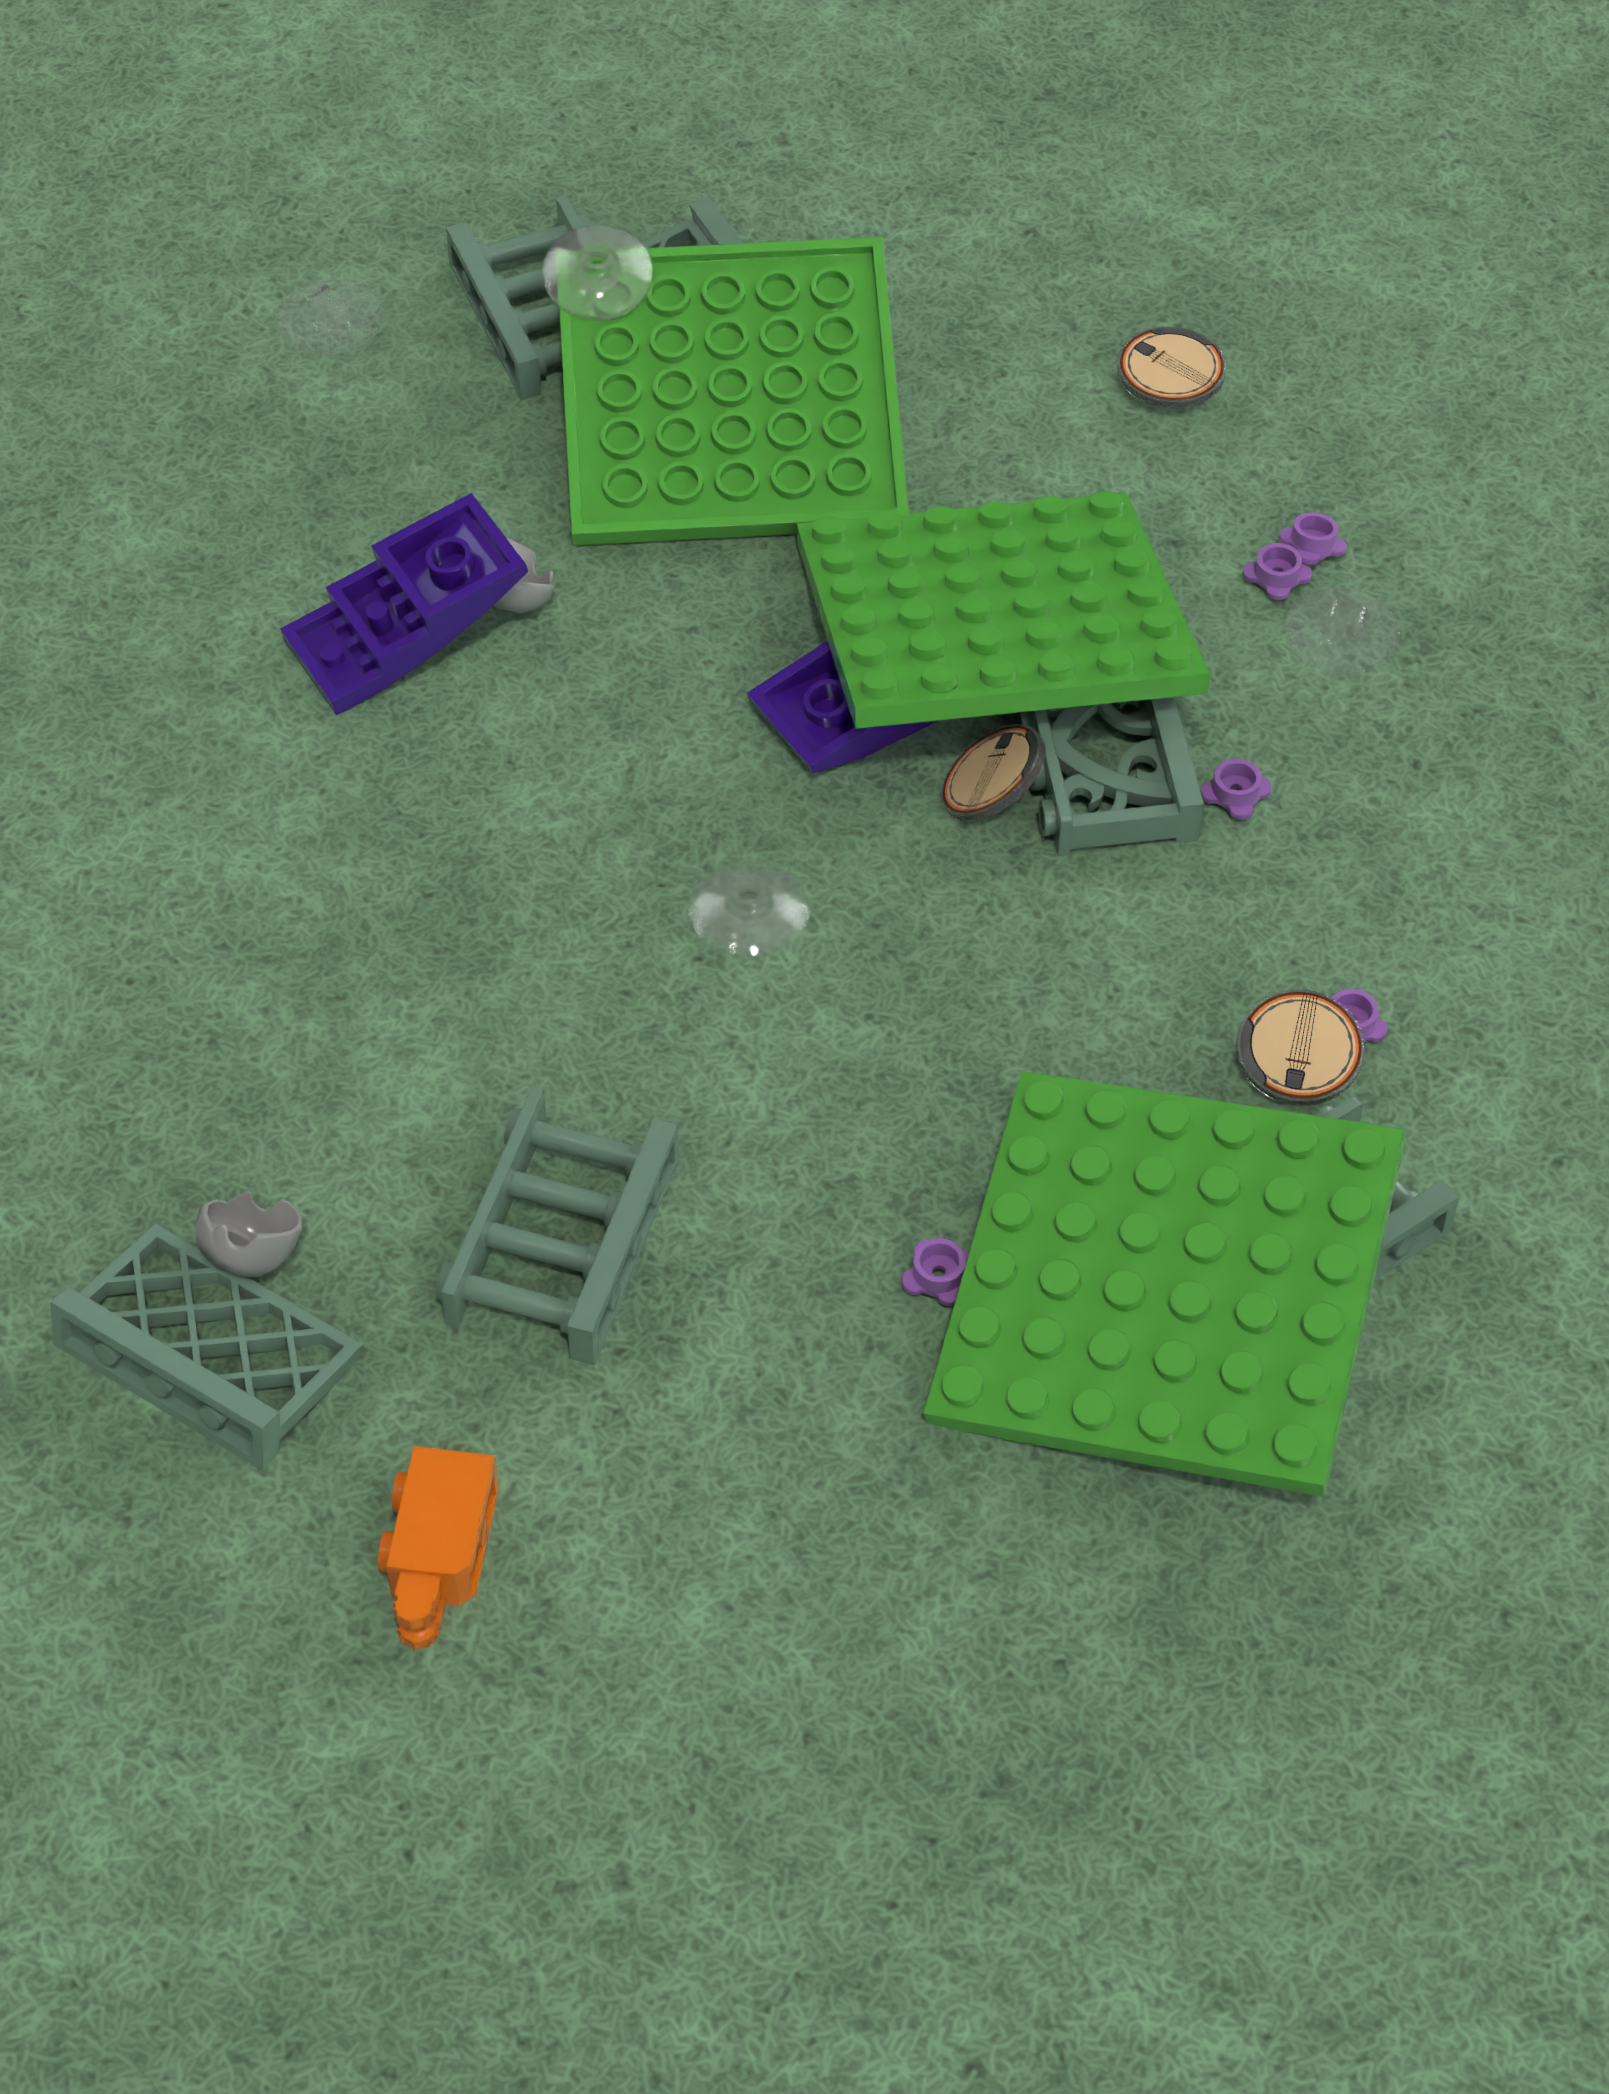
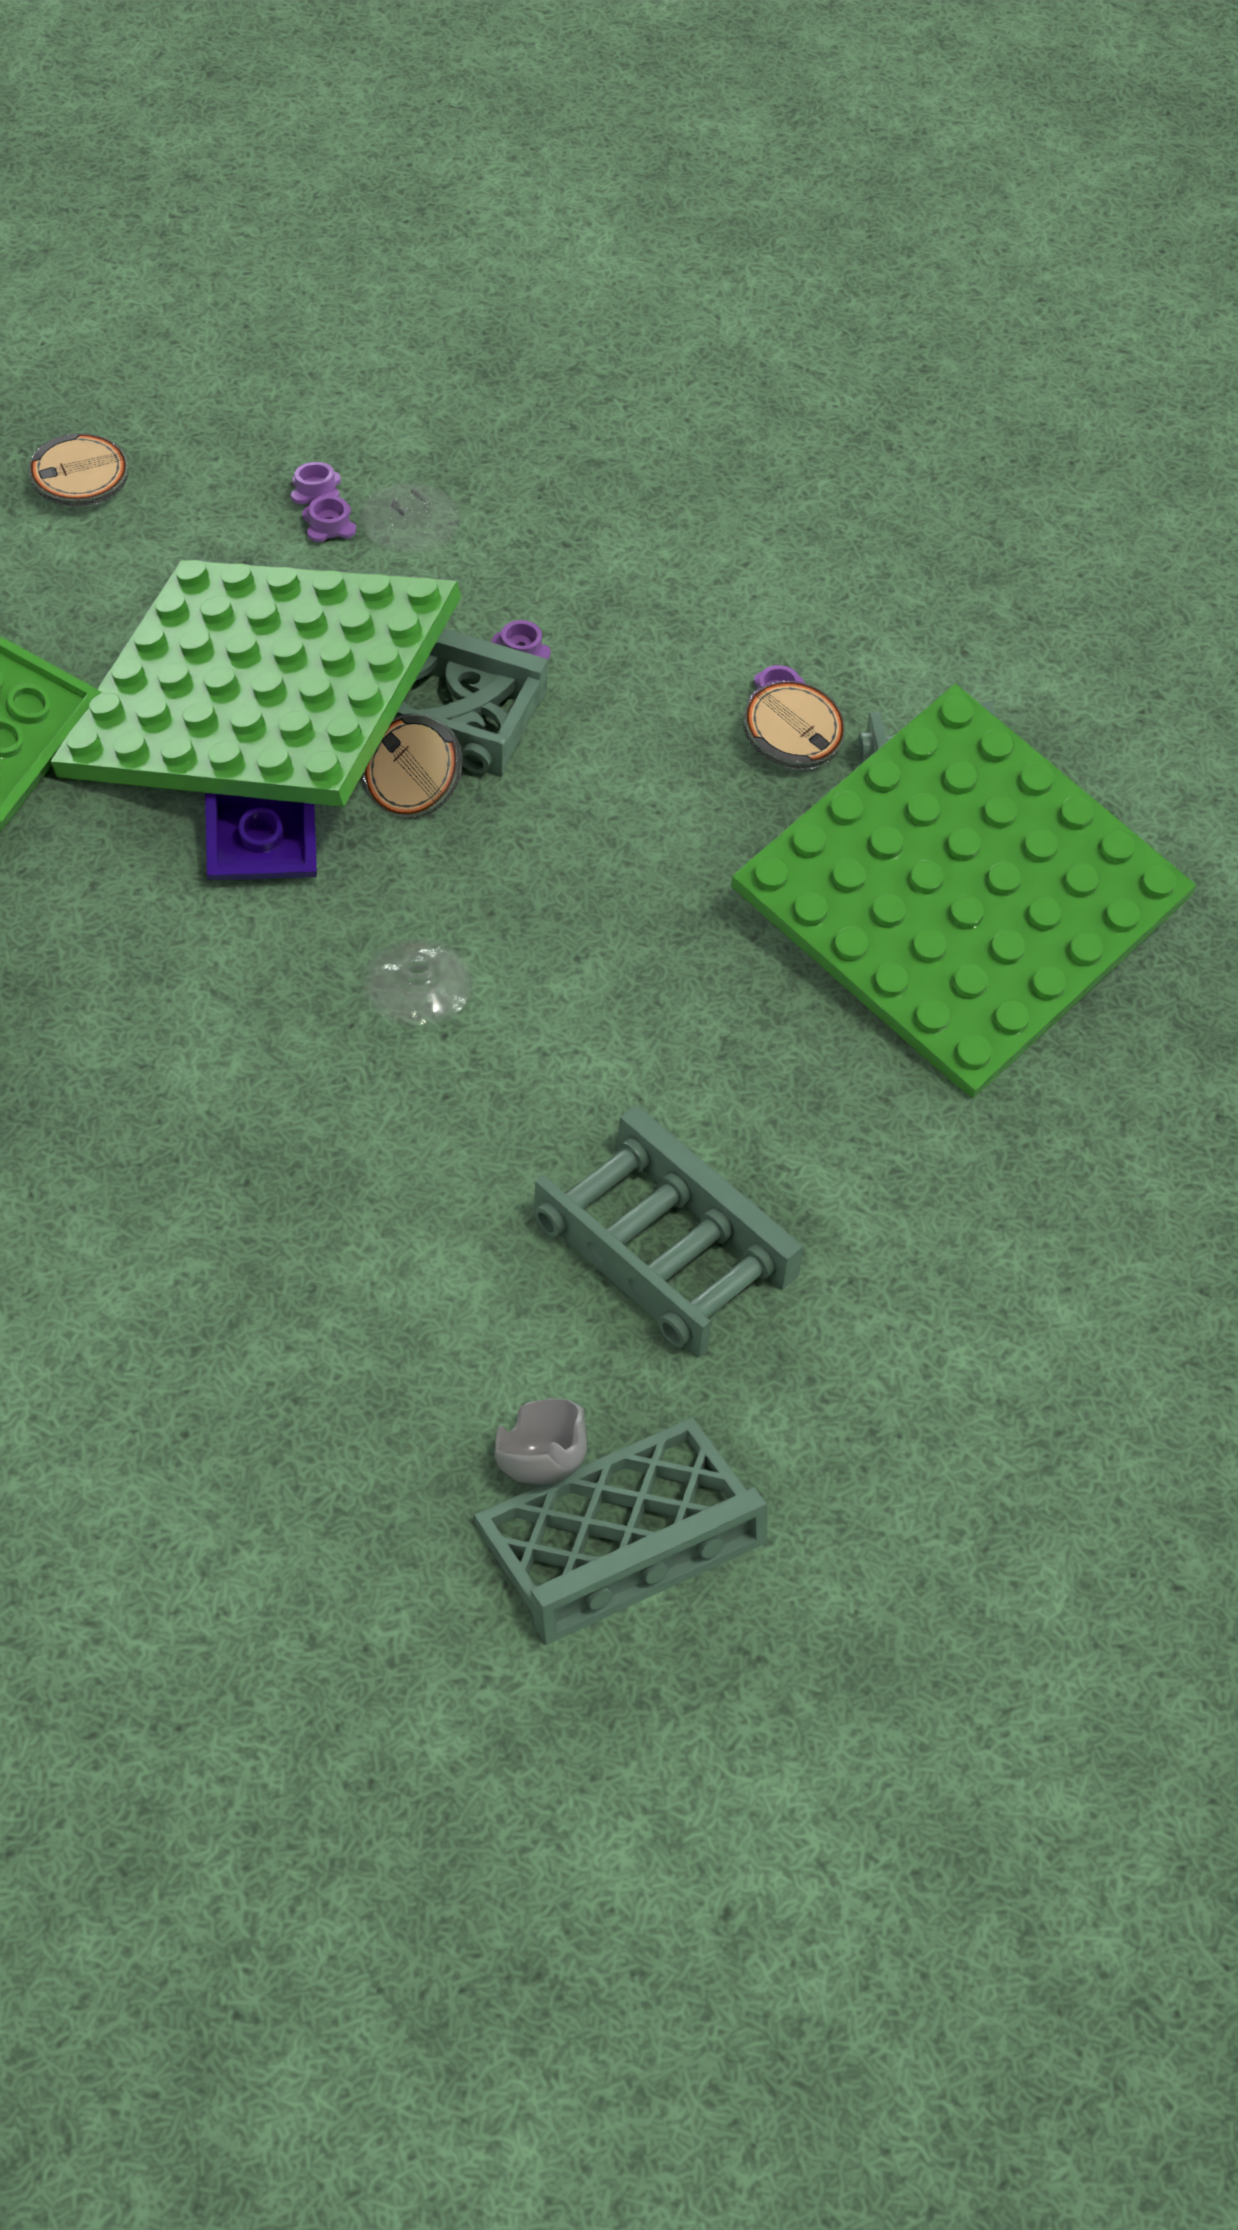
camera: 65 degrees left, 0 degrees up
(437, 1538) = (919, 1439): orange hinge -> none
(934, 1255) = (853, 1011): medium lavender plate -> none

